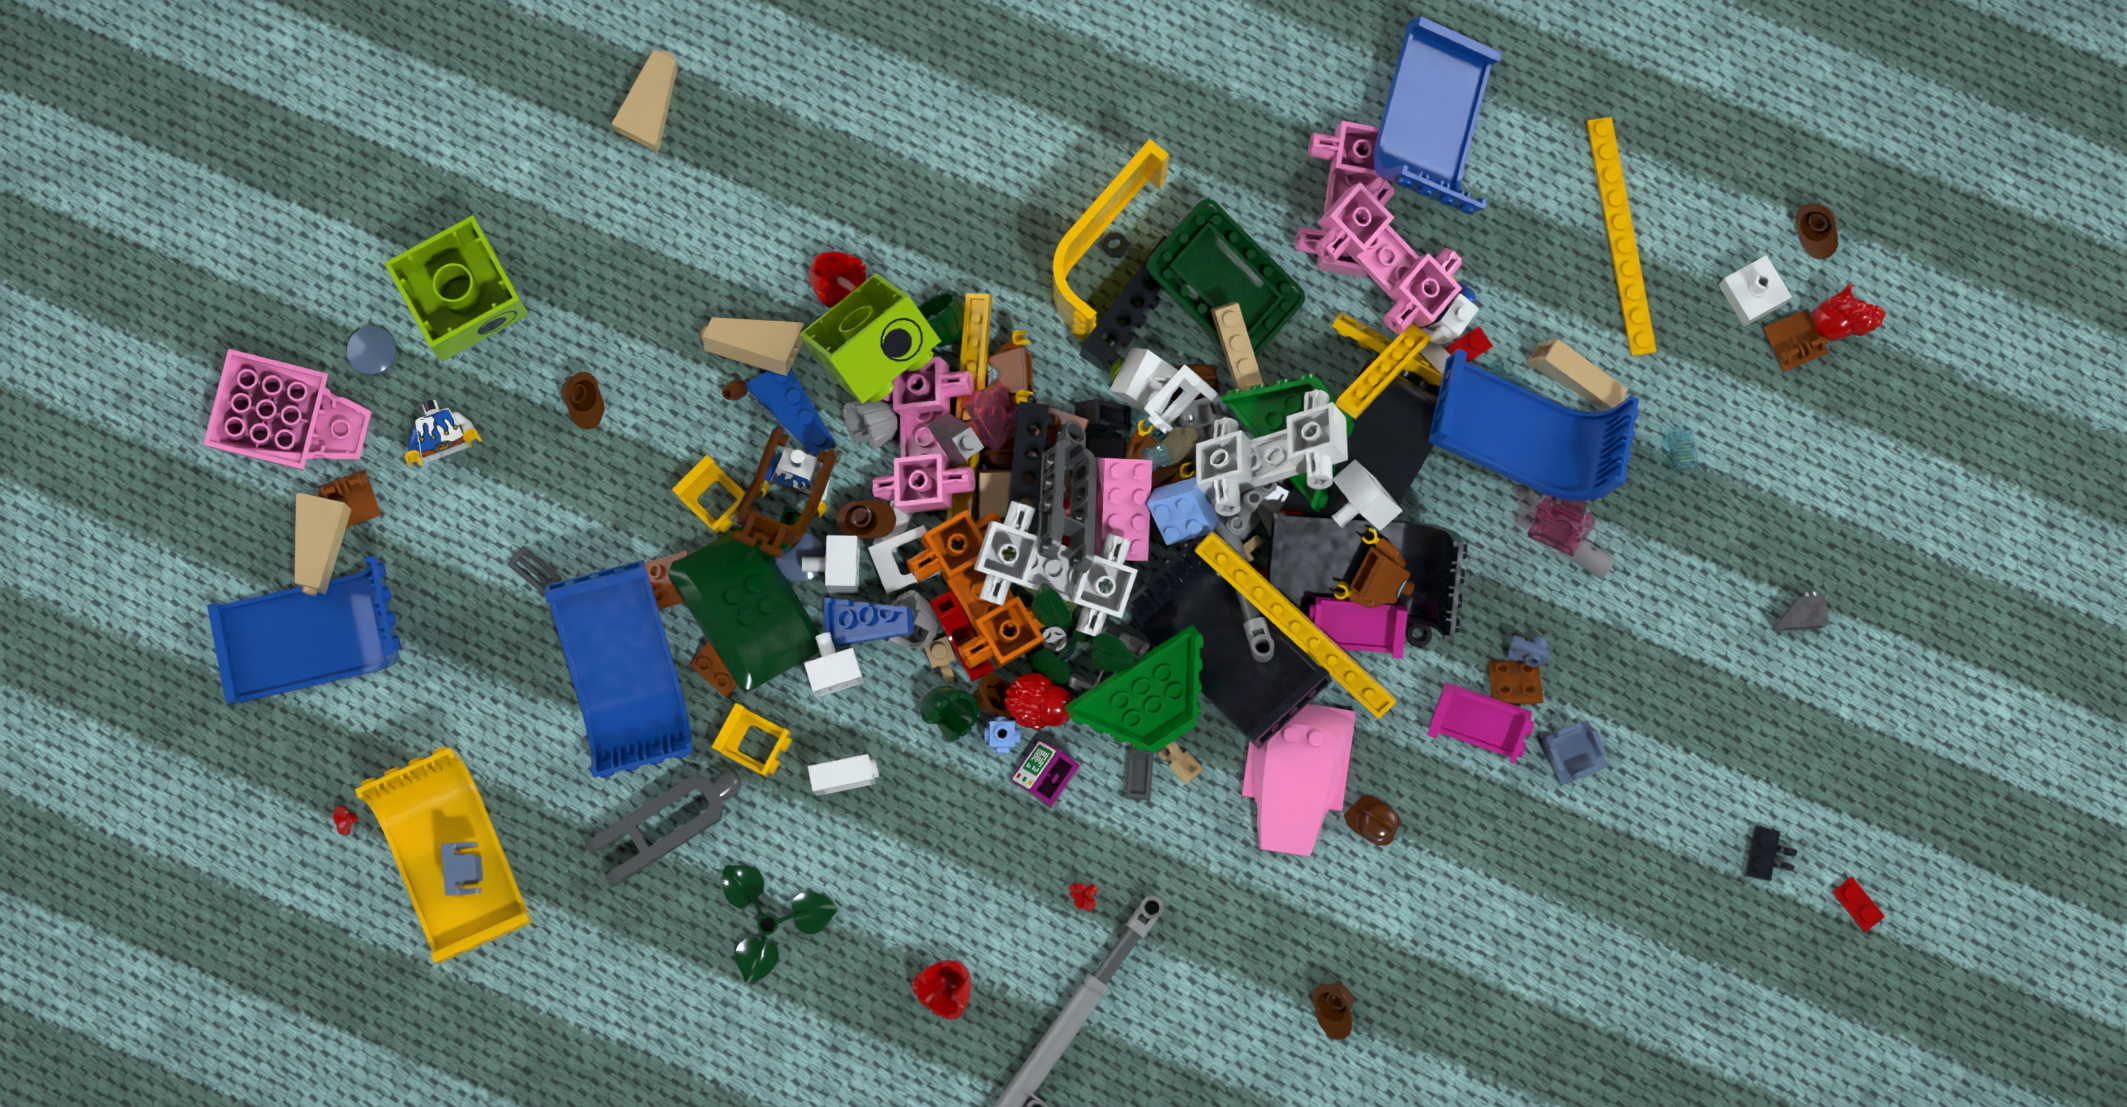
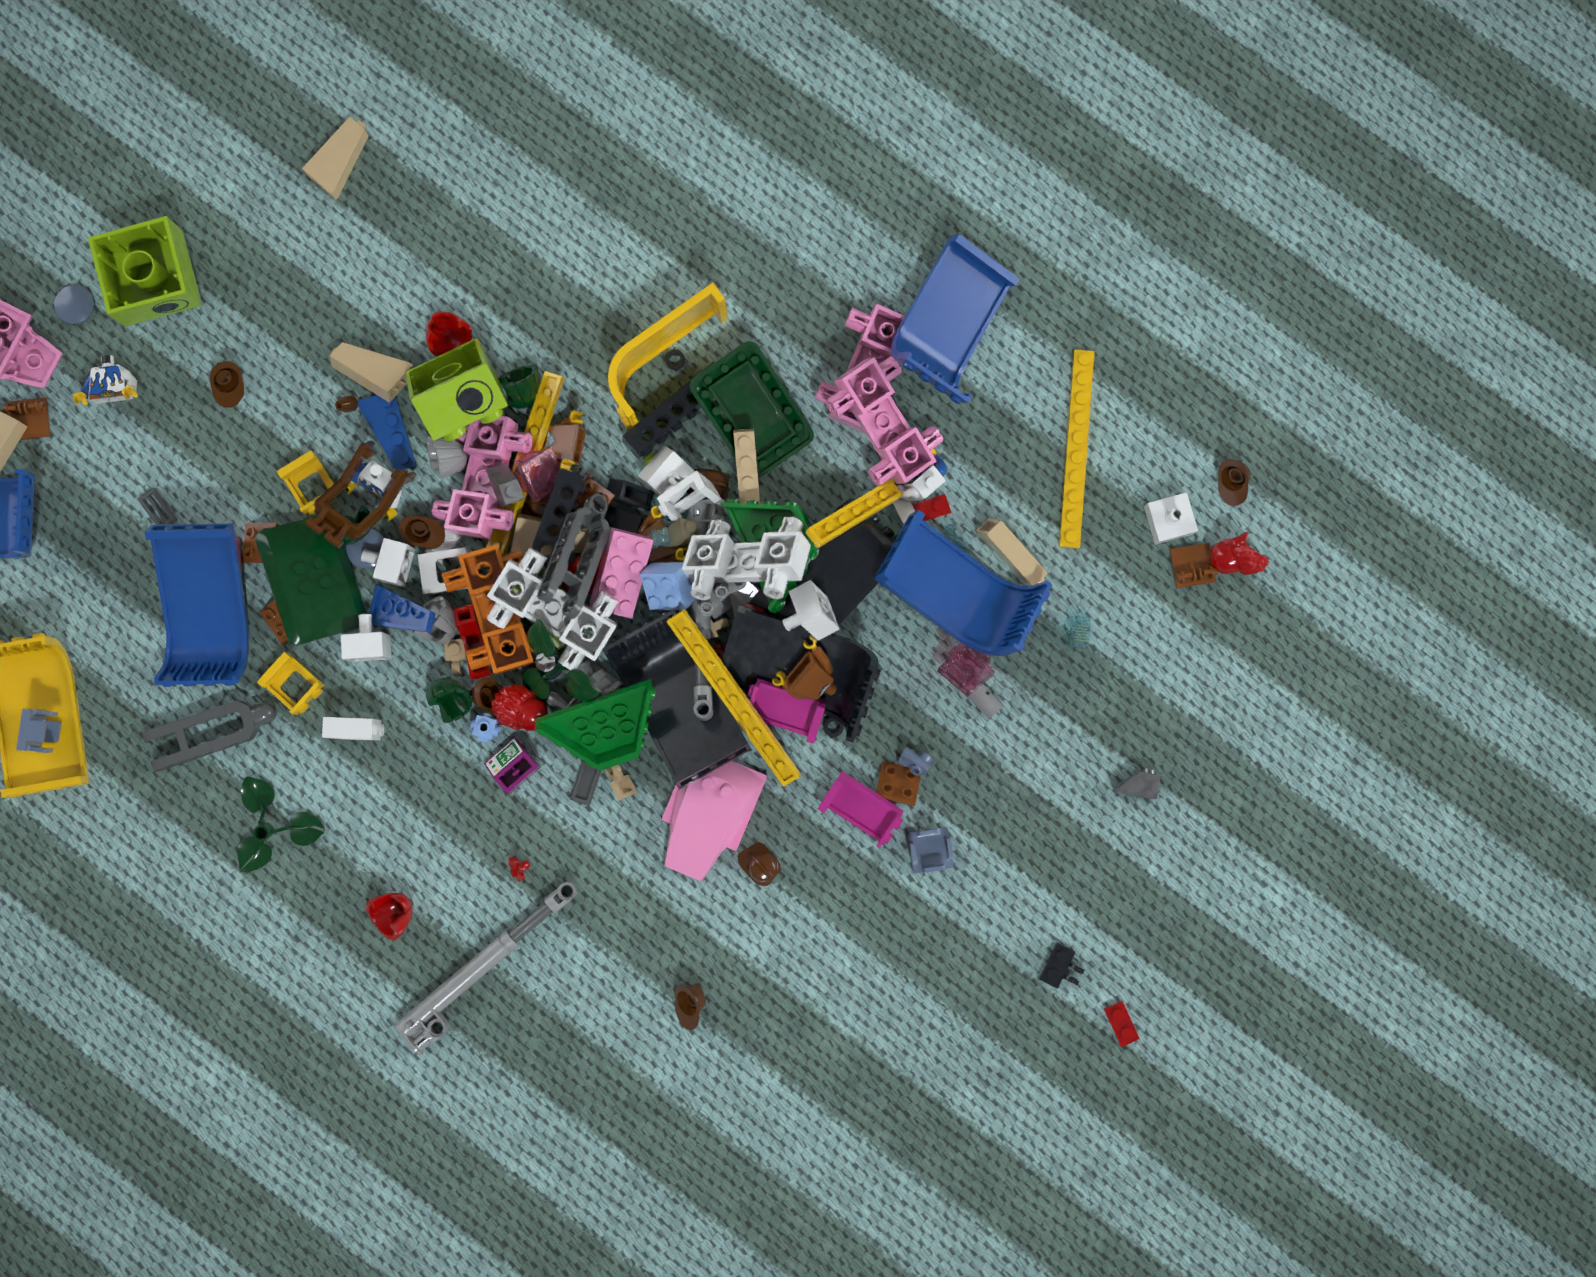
camera: 15 degrees right, 5 degrees up
(1374, 340) = (856, 483): yellow plate -> none

